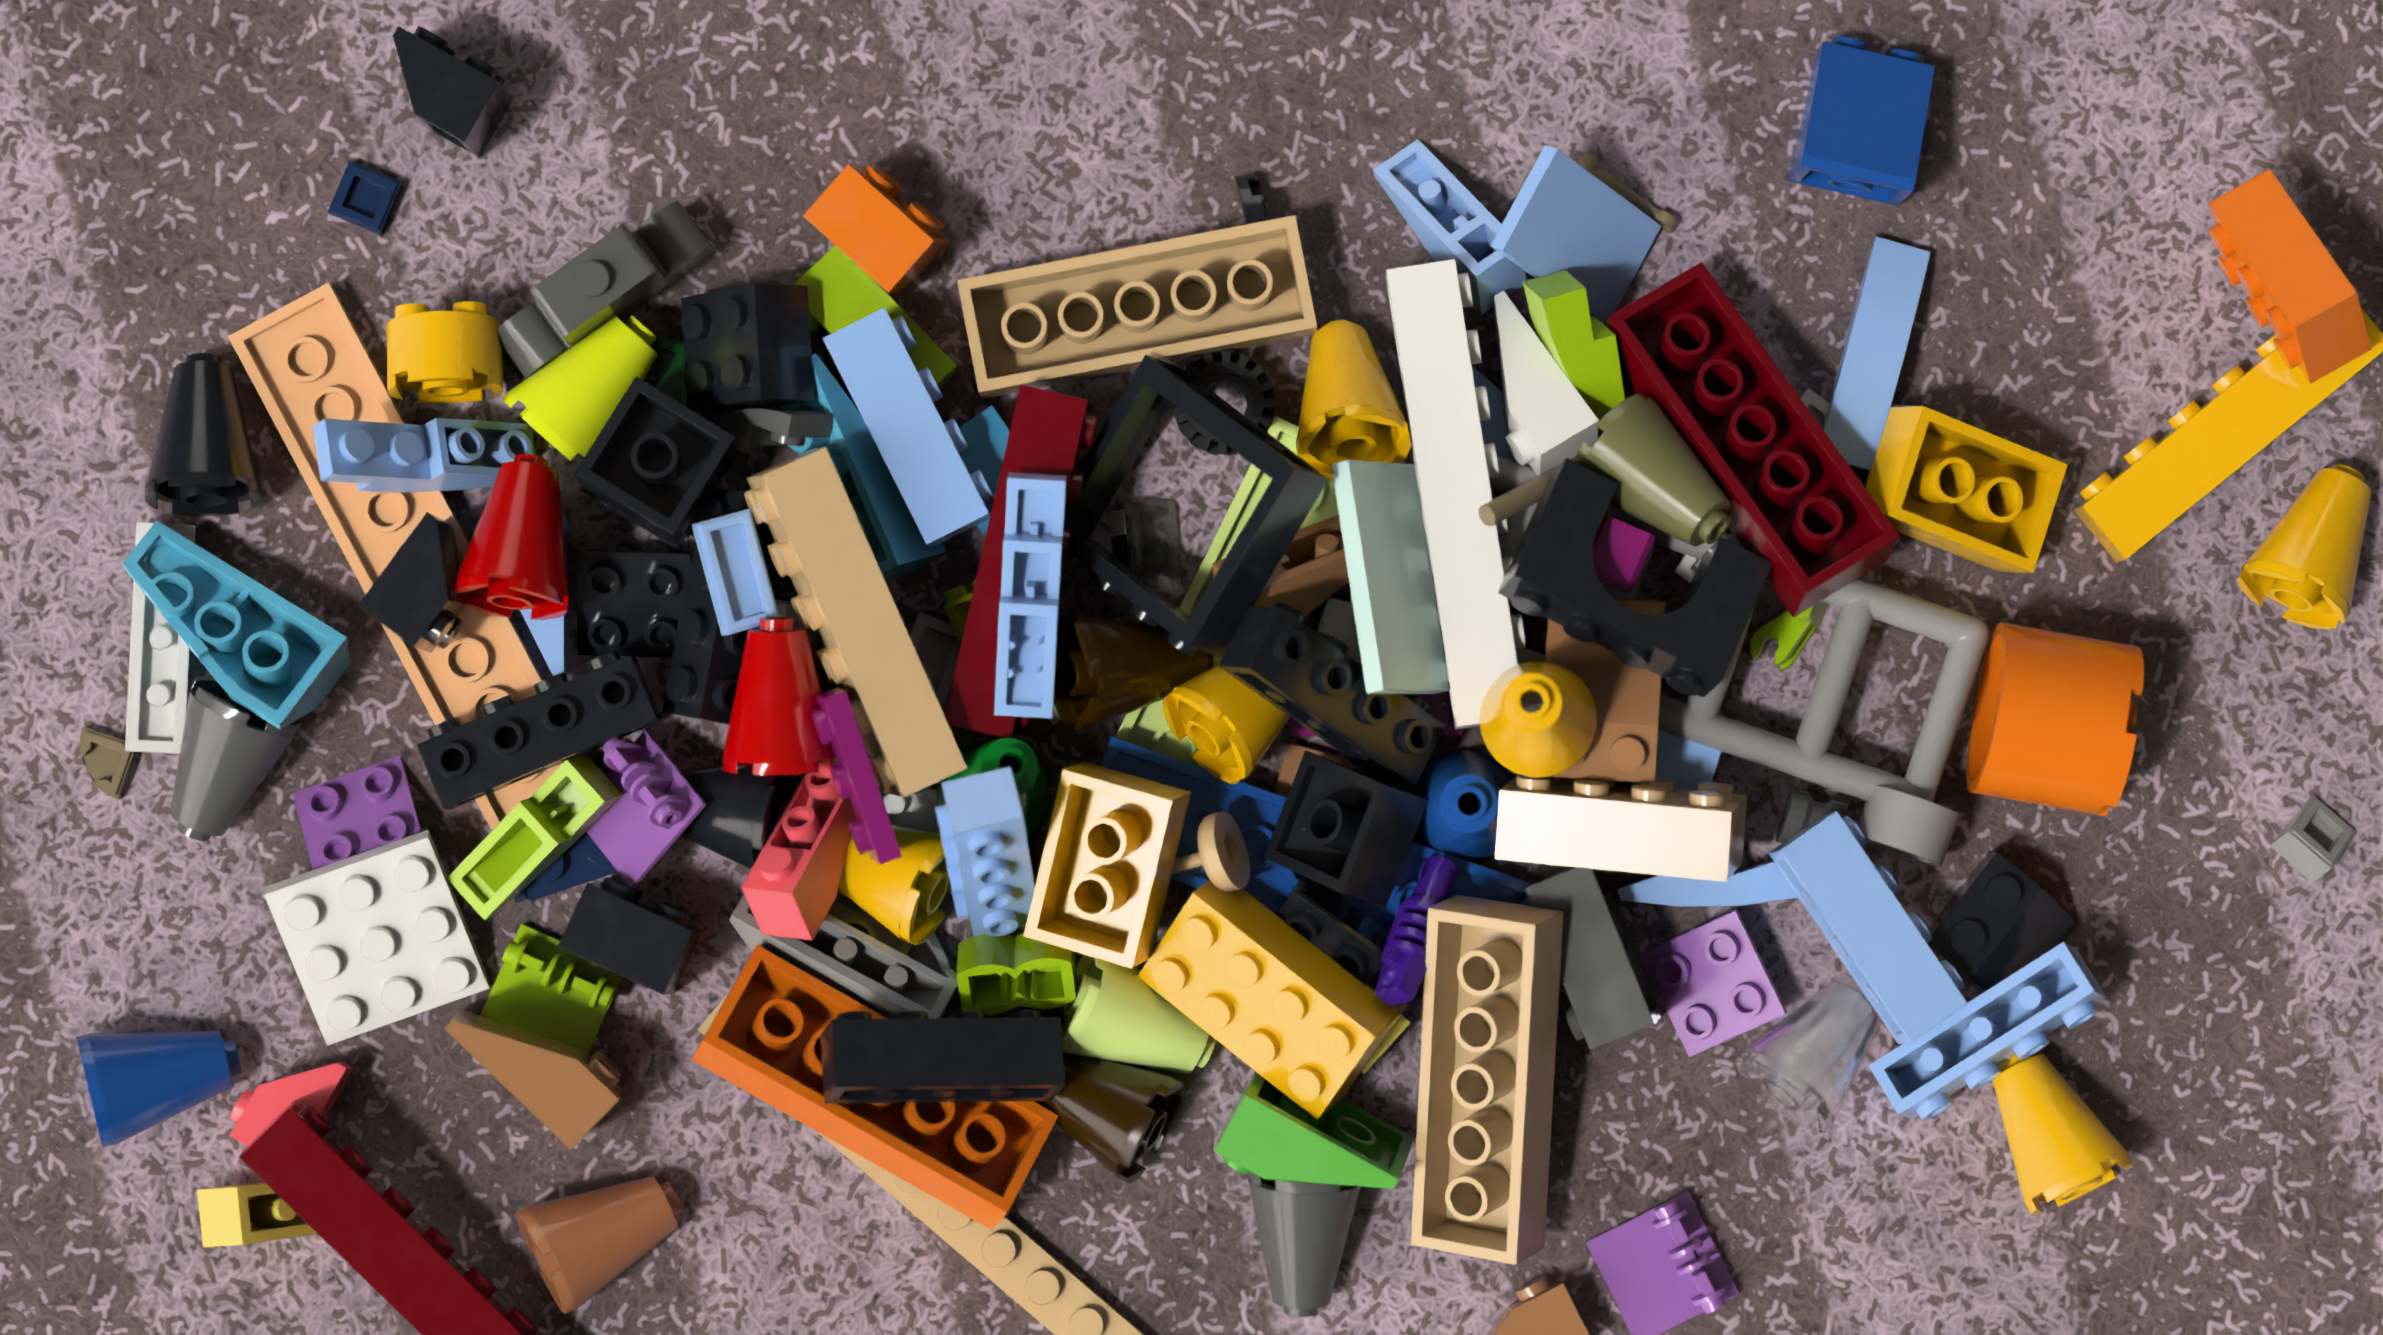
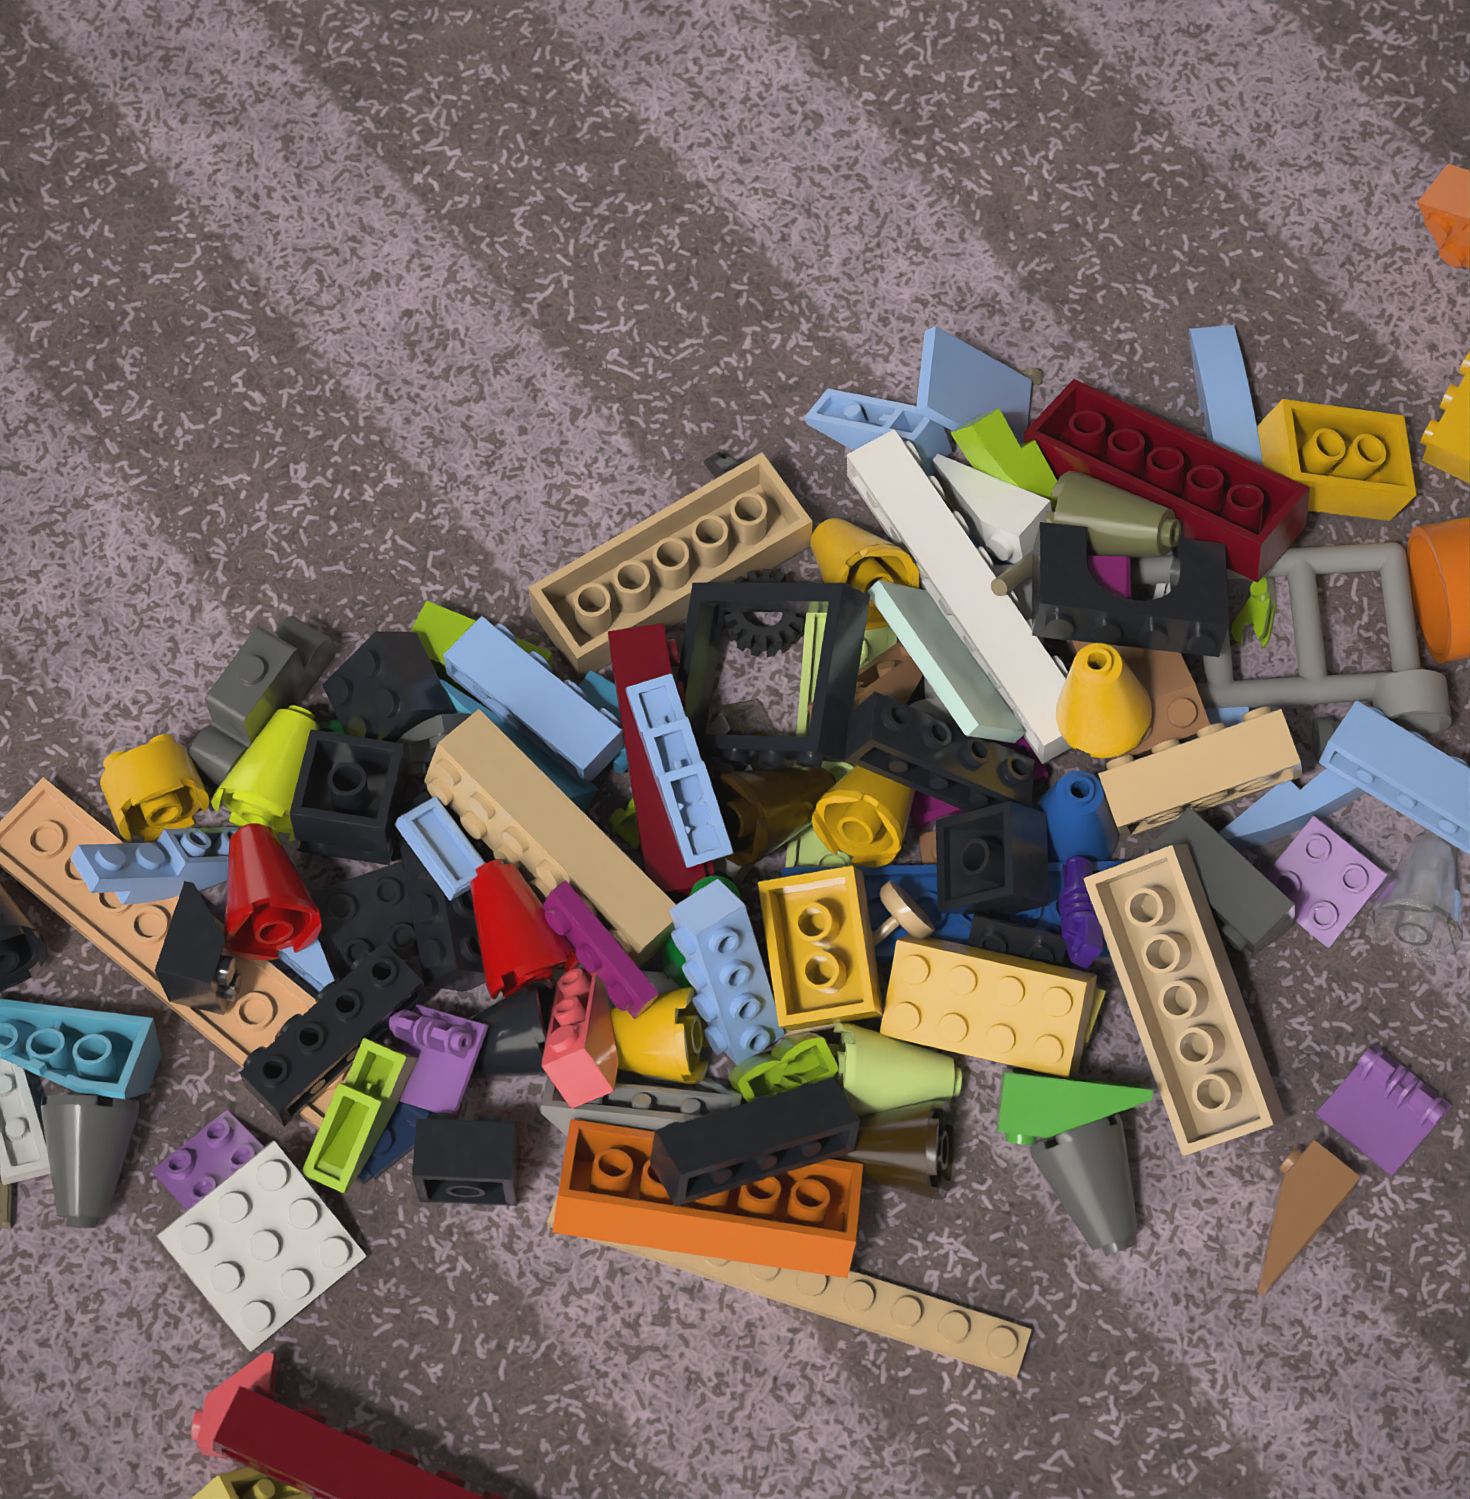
camera: 20 degrees left, 20 degrees down
(152, 1076) = (113, 1427): blue cone -> none
(365, 198) = (50, 713): dark blue tile -> none
(450, 95) = (90, 601): black slope -> none
(549, 1077) = (436, 1291): medium nougat slope -> none
(550, 990) = (418, 1247): lime hinge -> none
(596, 1235) = (526, 1412): nougat cone -> none
(876, 227) = (452, 574): orange slope -> none
(1863, 121) = (1145, 257): blue slope -> none

